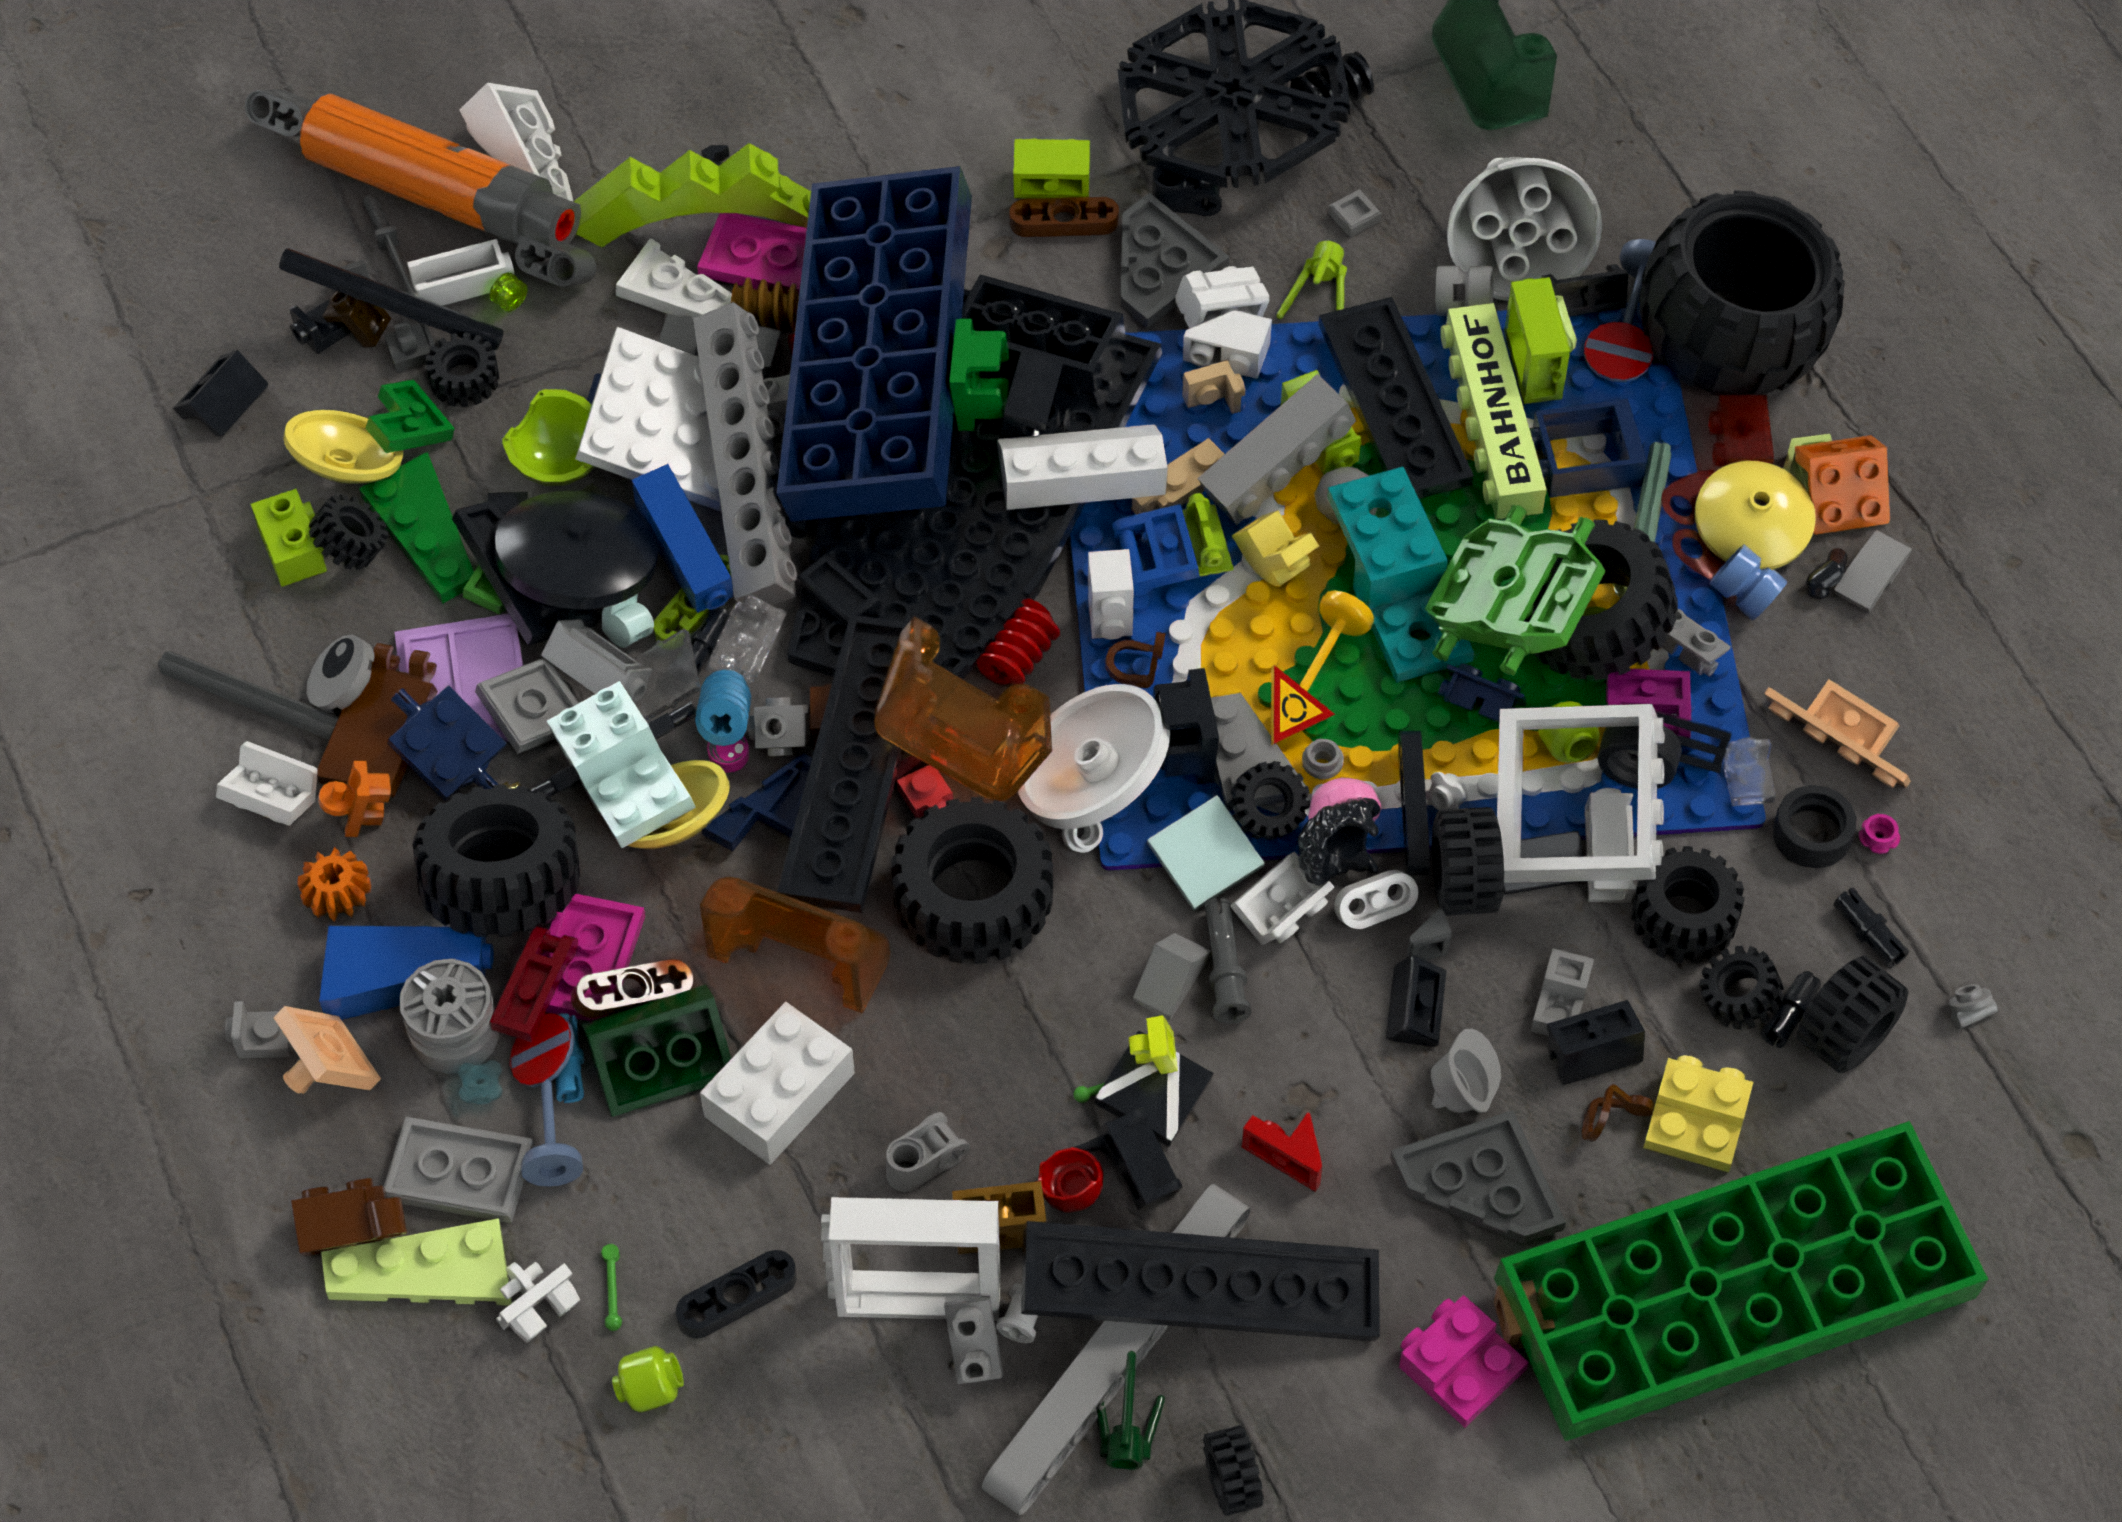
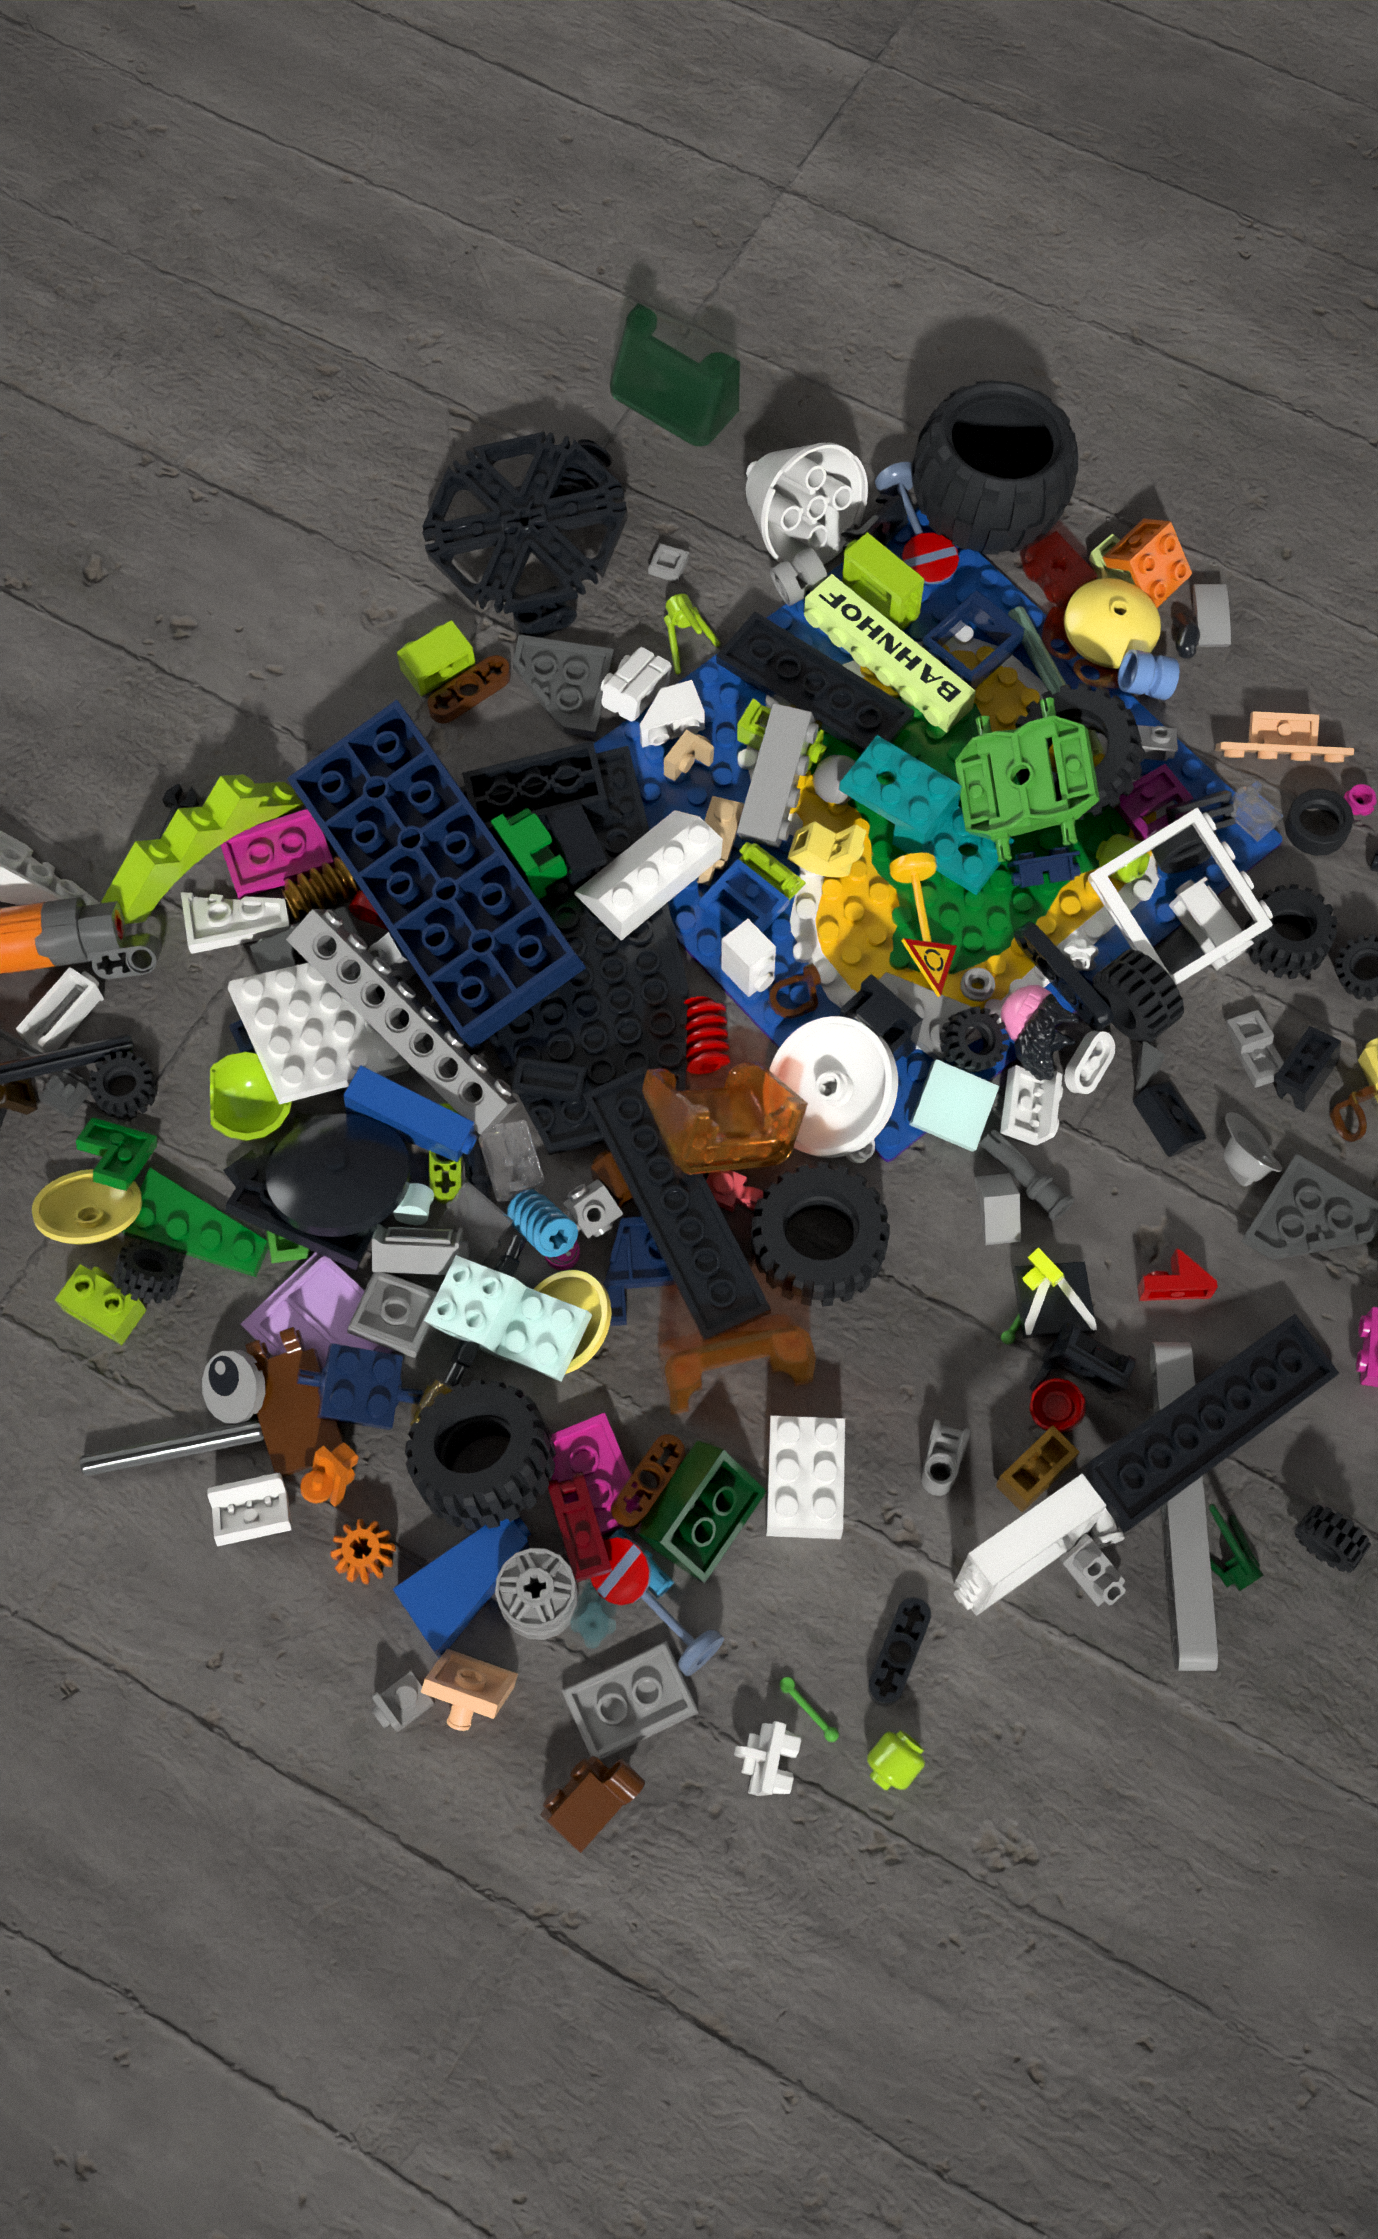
camera: 35 degrees left, 10 degrees up
(440, 1264) = (676, 1784): yellowish green wing -> none
(508, 292) = (107, 1002): clear neon green bush -> none

